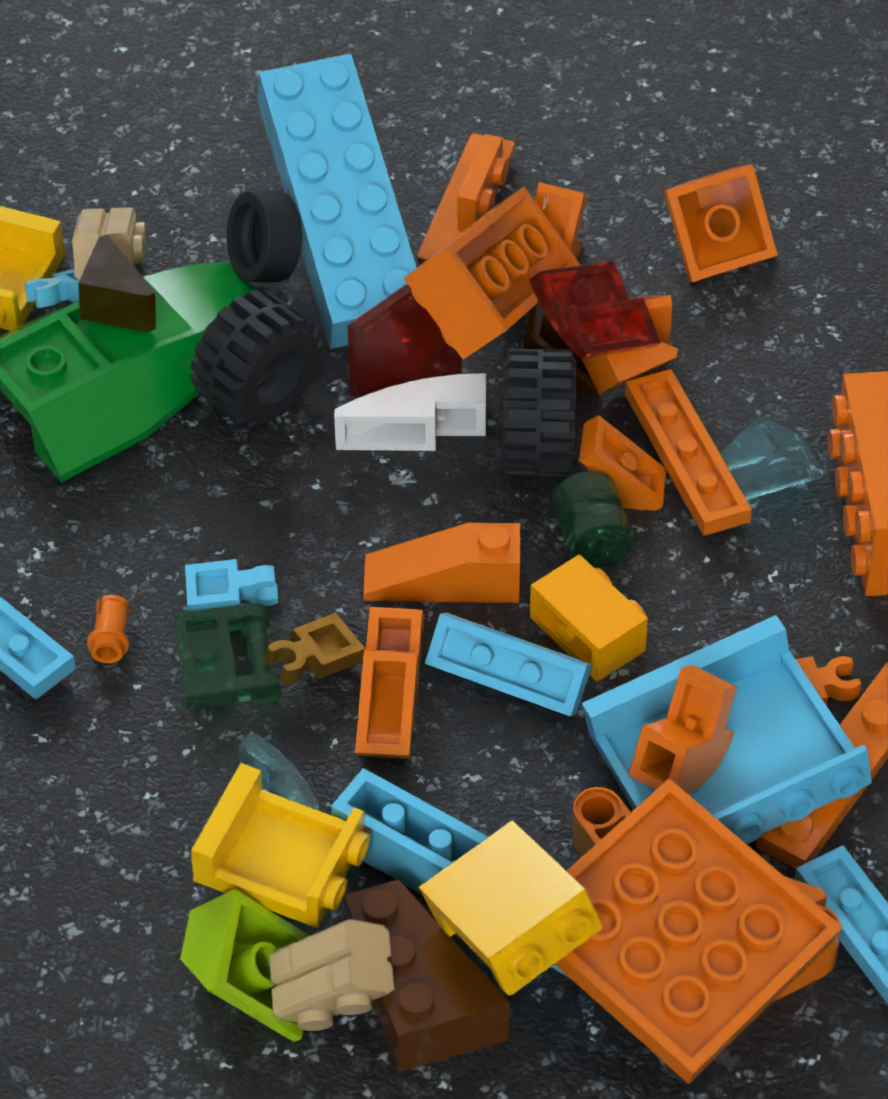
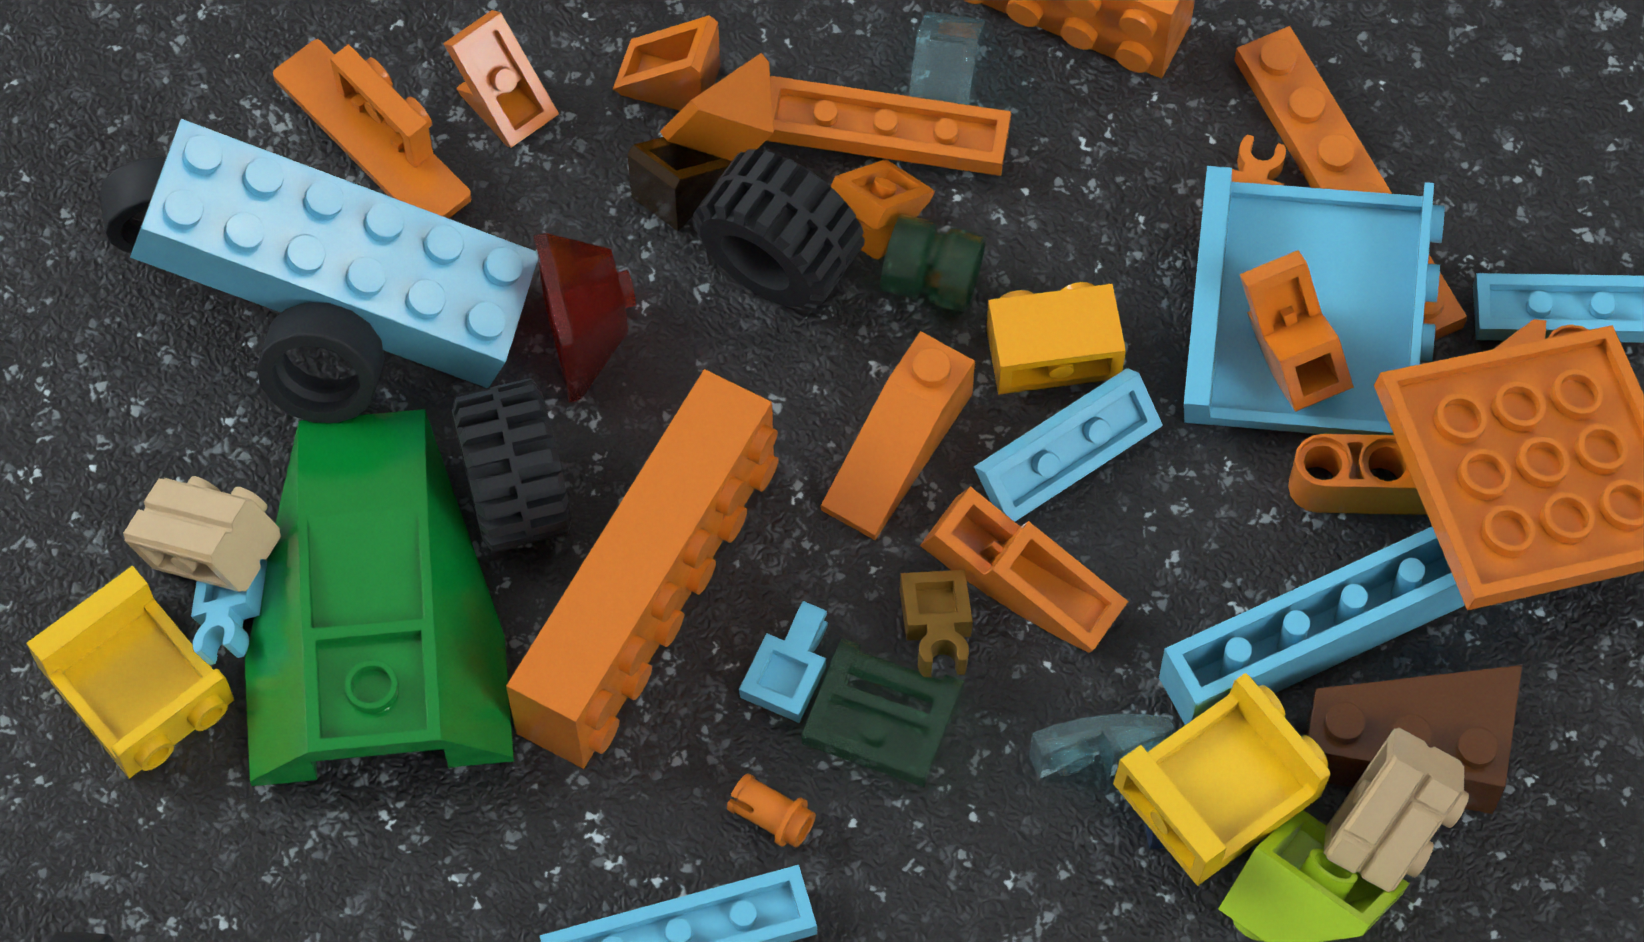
camera: 60 degrees left, 15 degrees up
(115, 291) = (329, 555): dark brown slope -> none
(231, 464) = (644, 570): none -> orange brick
(413, 414) = (670, 347): white slope -> none
(483, 275) = (569, 164): orange brick -> none
(512, 906) = (1462, 595): yellow panel -> none
(593, 310) = (707, 101): clear red slope -> none

